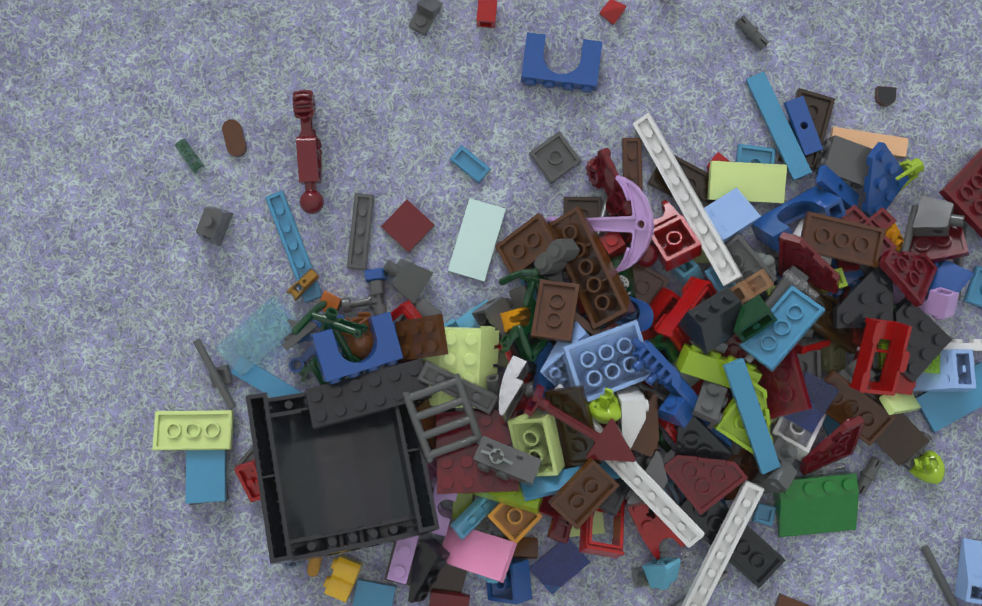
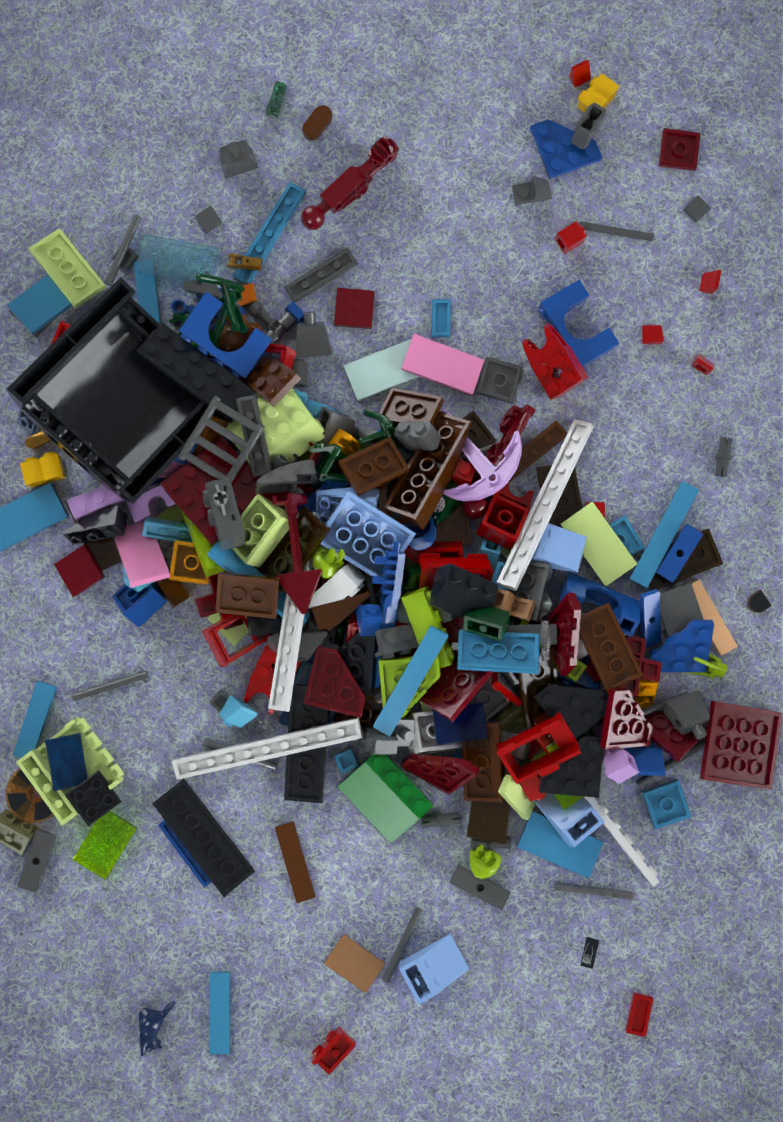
camera: 50 degrees right, 0 degrees up
(243, 285) = (208, 219): none -> dark grey tile
(509, 192) = (442, 364): none -> bright pink tile
(559, 565) = (181, 630): clear blue piece -> none
(574, 104) = (552, 358): none -> red brick
(954, 482) = (490, 893): none -> dark grey tile

